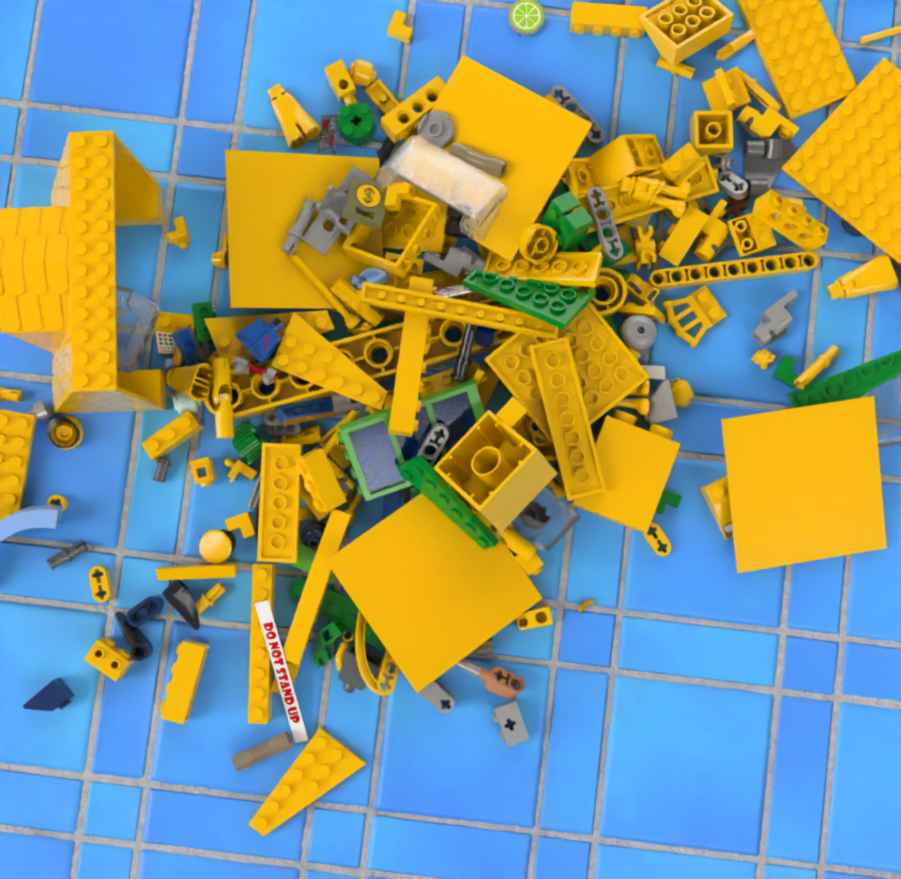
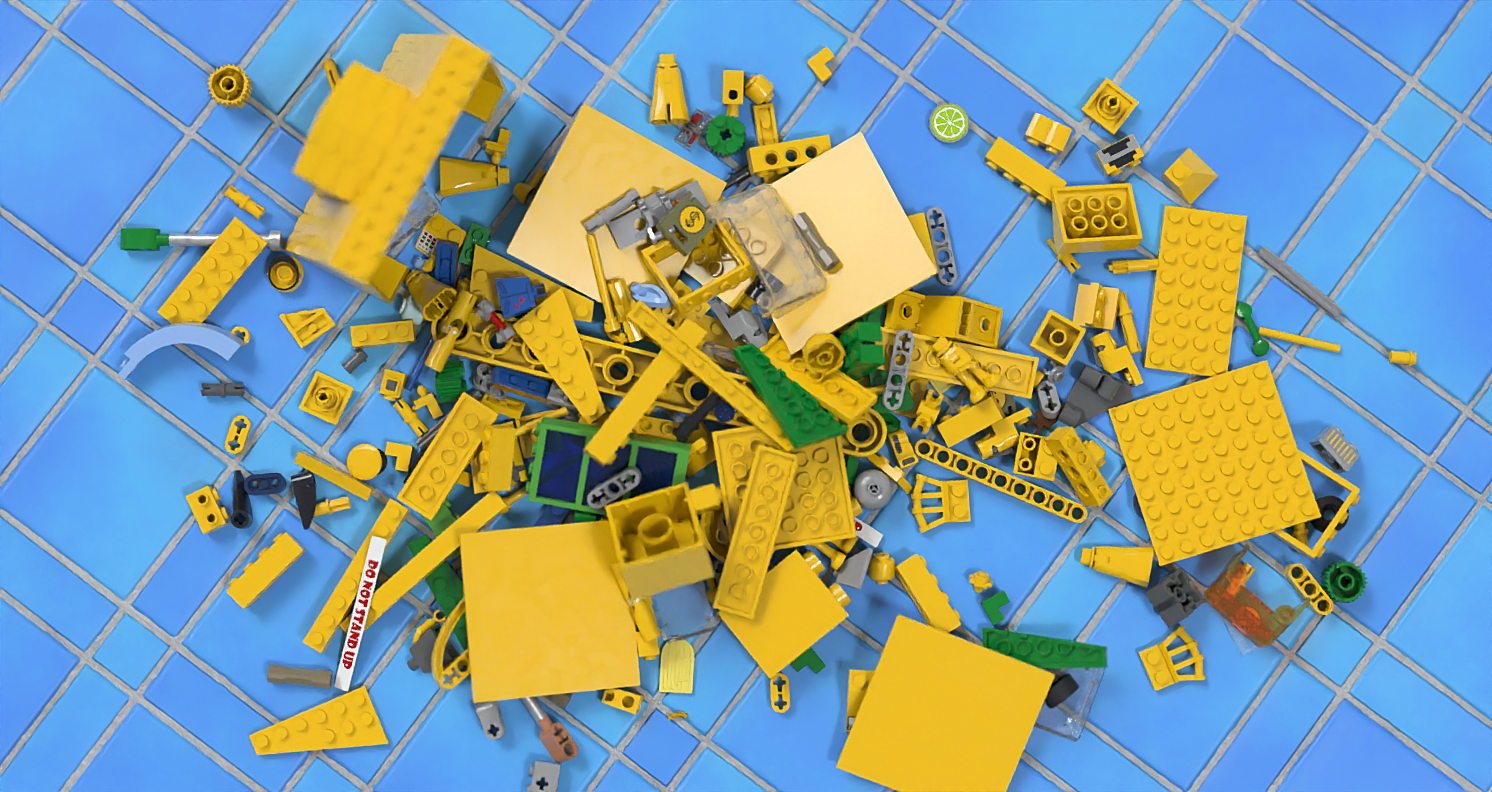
camera: 25 degrees right, 0 degrees up
(51, 697) = (134, 514): dark blue slope -> none
(107, 463) = (308, 325): none -> yellow wing
(155, 513) = (326, 398): none -> yellow plate
(166, 273) = (469, 176): none -> yellow piece
(216, 447) = (419, 365): none -> blue bar
(232, 489) = (410, 417): none -> yellow pin
(313, 533) = (462, 502): dark blue head -> none
(336, 628) = (432, 601): green piece -> none
(397, 193) = (719, 232): yellow piece -> none
(432, 485) = (599, 533): green wing -> none
(437, 128) = (796, 187): light grey tile -> none
(534, 515) = (677, 603): dark grey hair -> none
(563, 567) = (677, 667): none -> light yellow window
(682, 165) = (1007, 355): yellow plate -> none
(727, 393) = (926, 595): none -> yellow brick
(774, 321) = (1012, 553): light grey plate -> none
(822, 362) = (1033, 617): yellow pin -> none
(870, 50) = (1260, 346): none -> green bar
(884, 406) = (1061, 690): none -> black tyre

